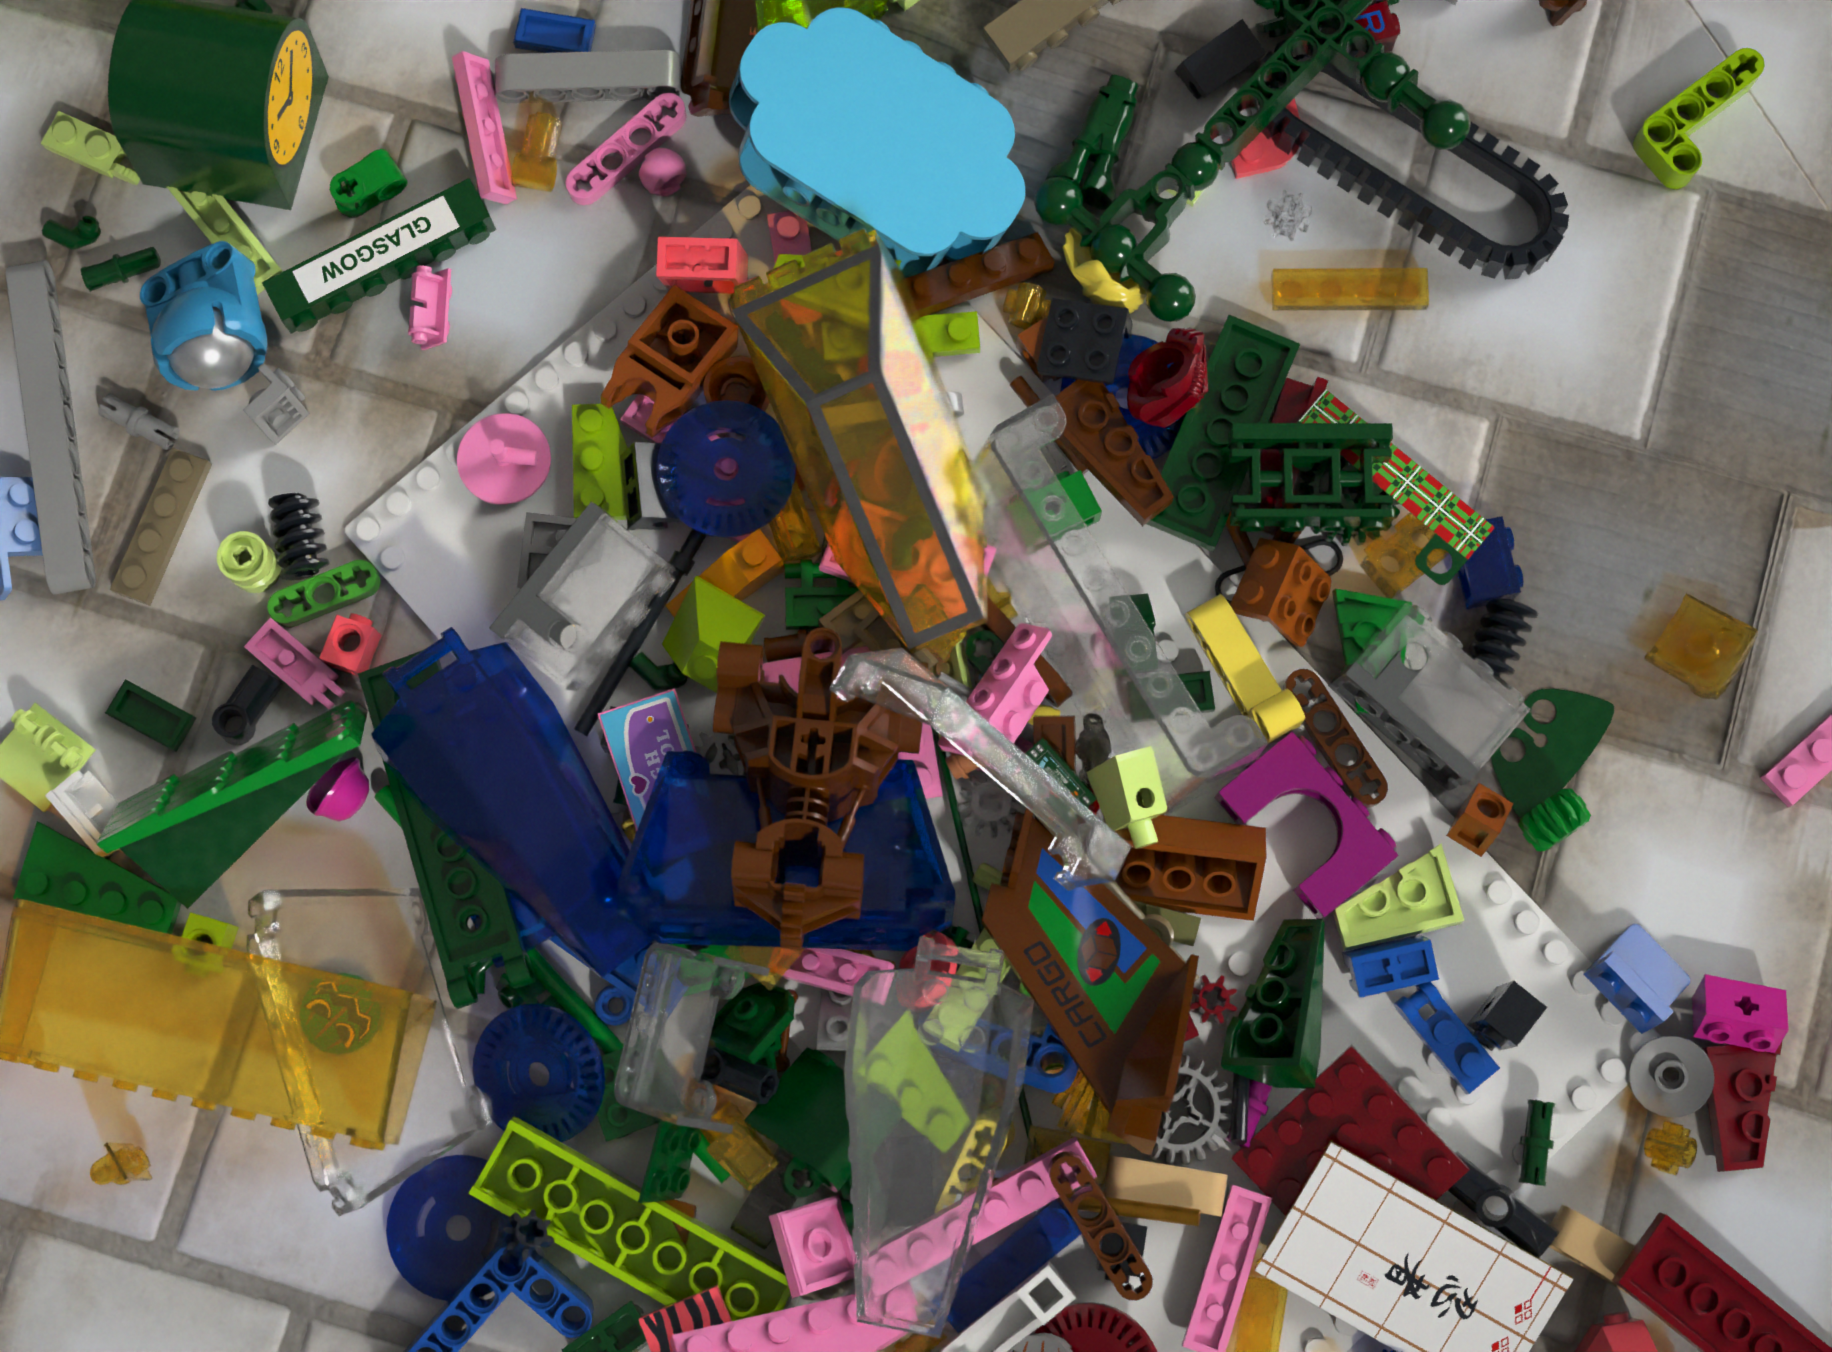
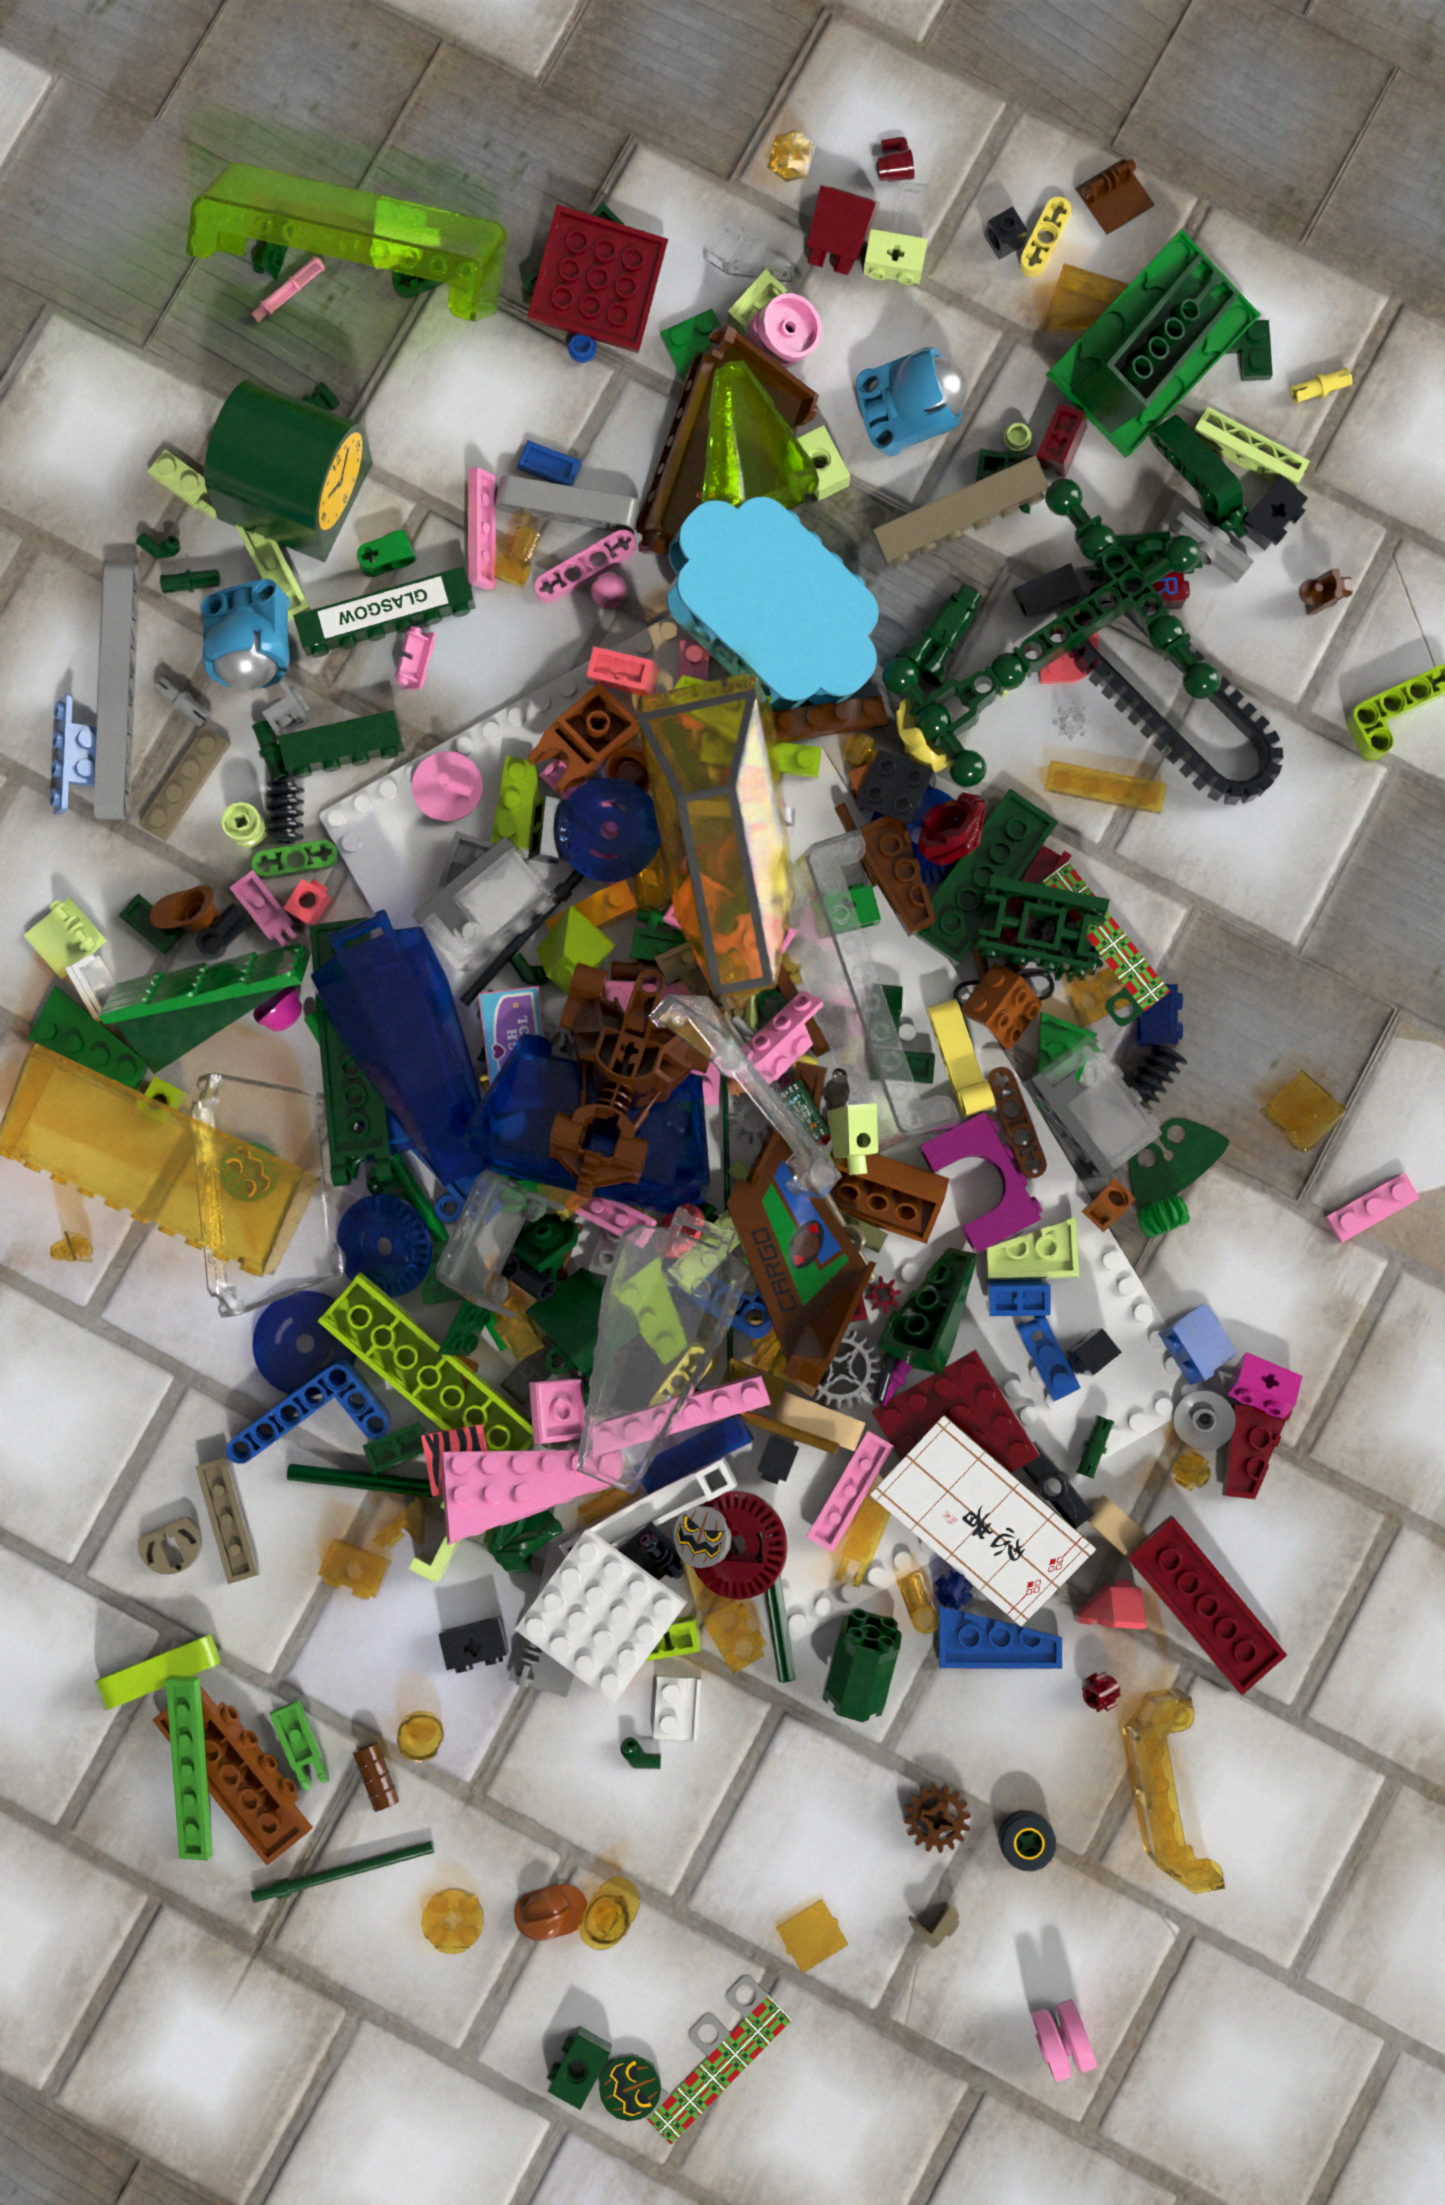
camera: 10 degrees right, 5 degrees up
(193, 686) = (185, 909): none -> dark orange piece
(264, 460) = (270, 750): none -> dark green pin
(356, 433) = (341, 744): none -> dark green brick
(536, 1233) = (344, 1362): black gear -> none
(1102, 1224) = (765, 1439): reddish brown beam -> none

